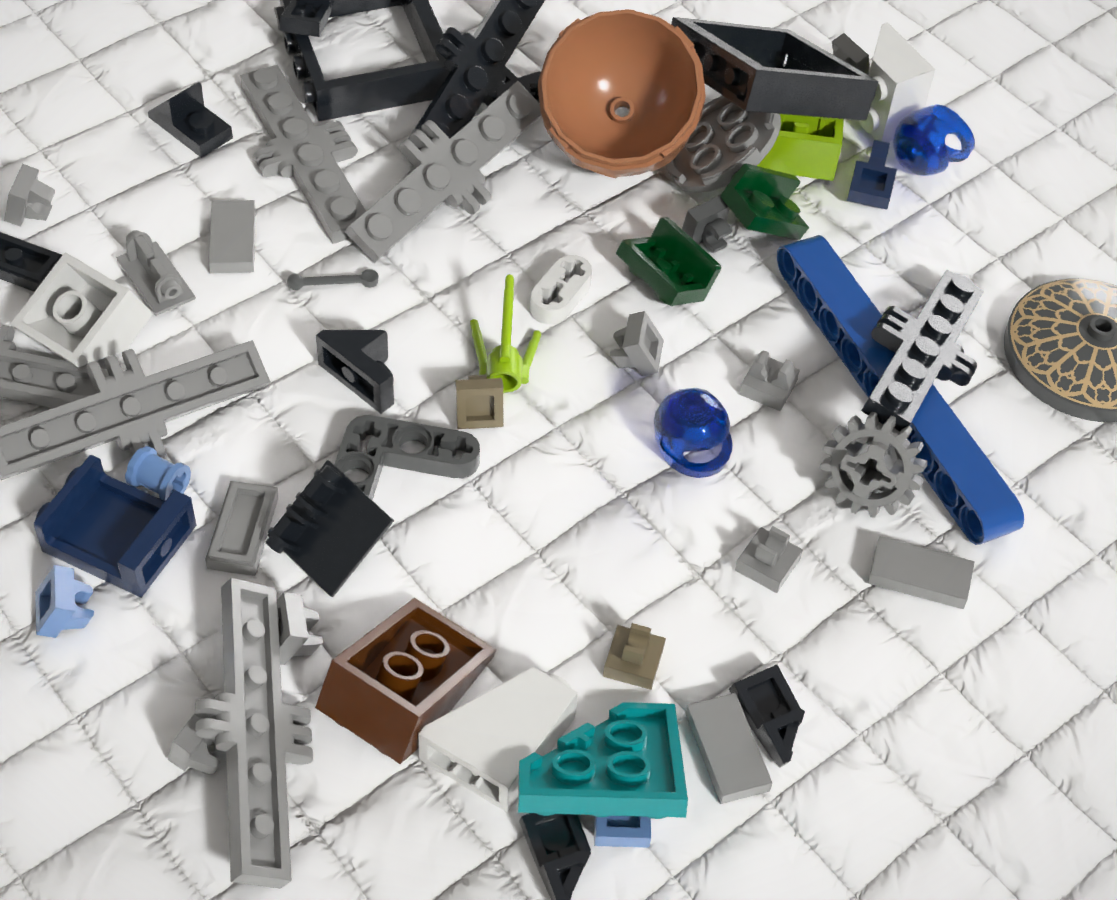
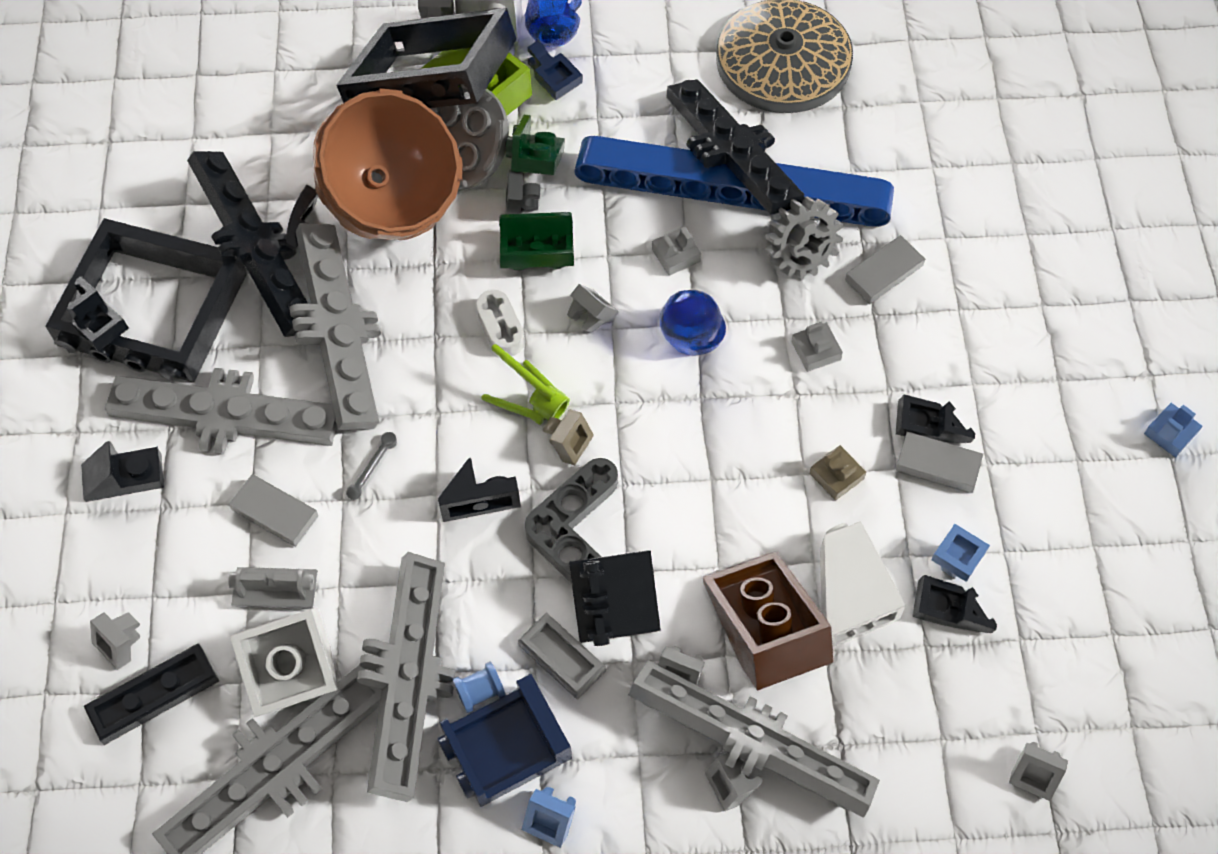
camera: 50 degrees left, 10 degrees up
(611, 768) = (930, 534): teal plate -> none

